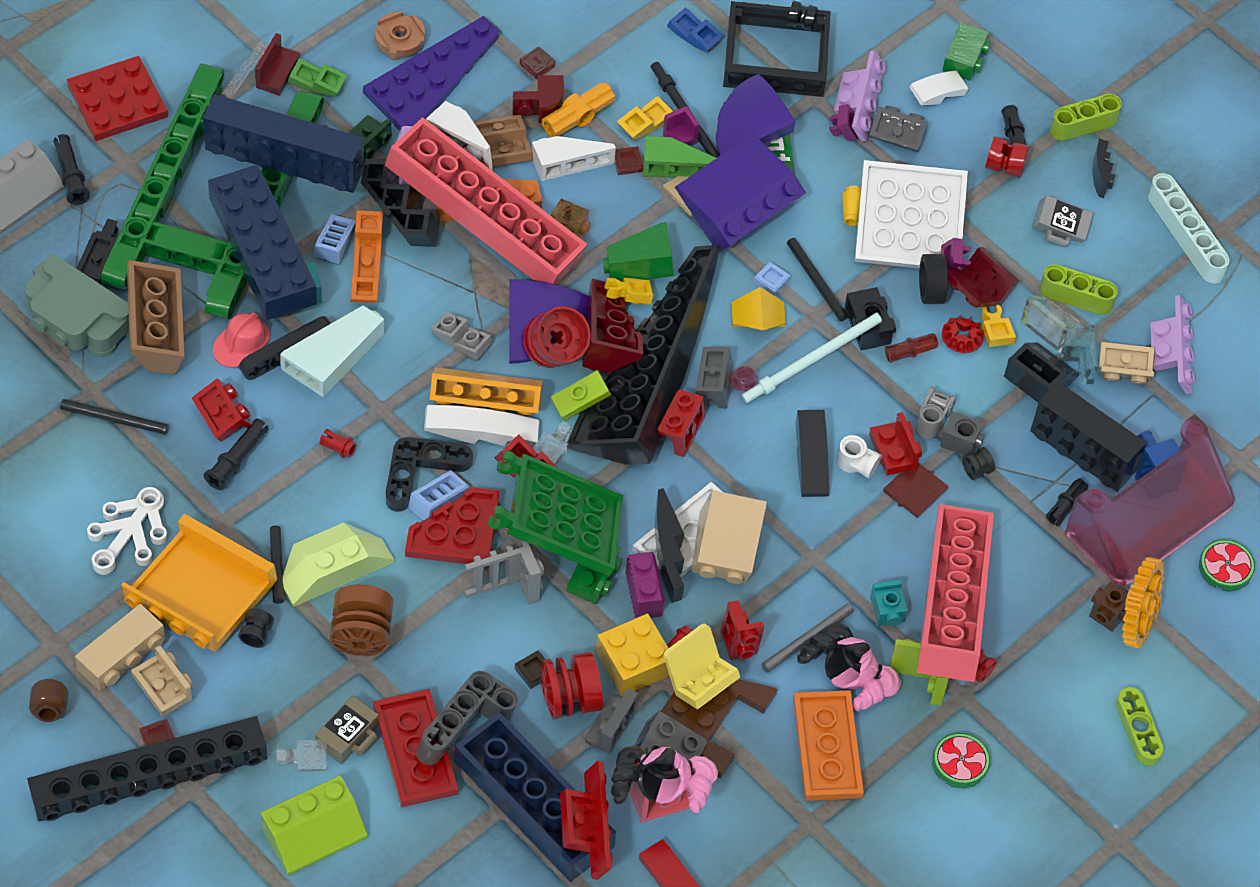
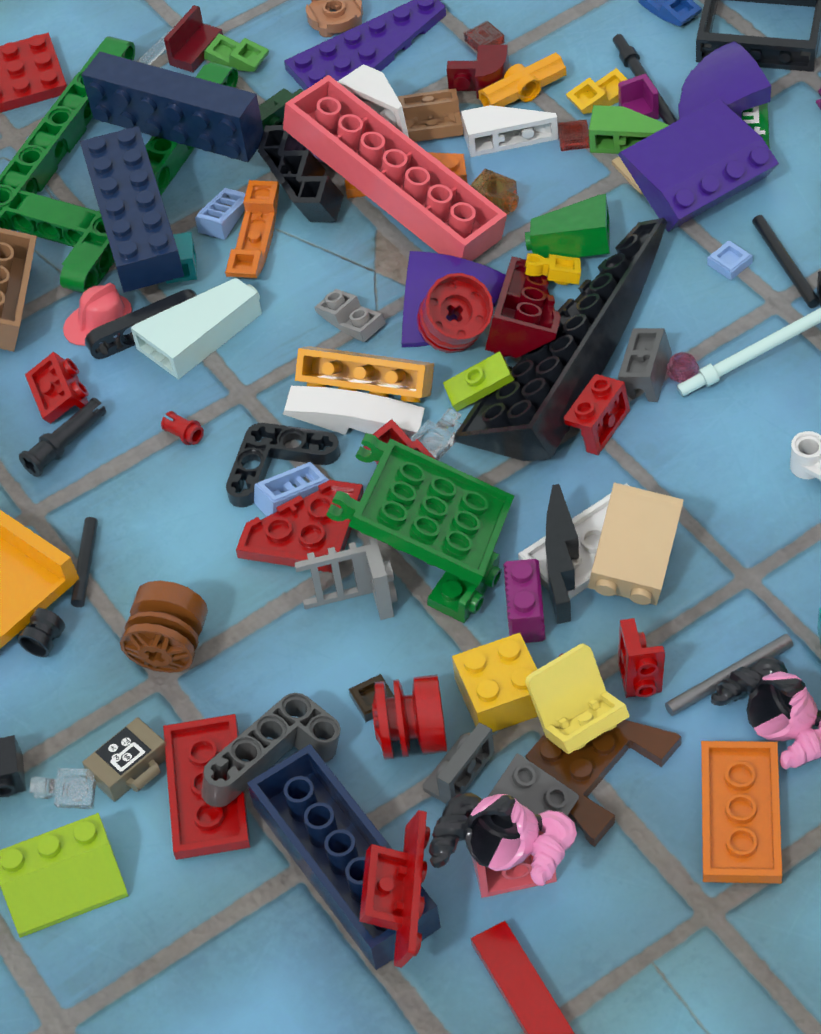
camera: 20 degrees right, 5 degrees down
(332, 561) = (147, 553): yellowish green wedge -> none
(758, 310) = (709, 292): yellow slope -> none
(812, 453) = (757, 453): black slope -> none

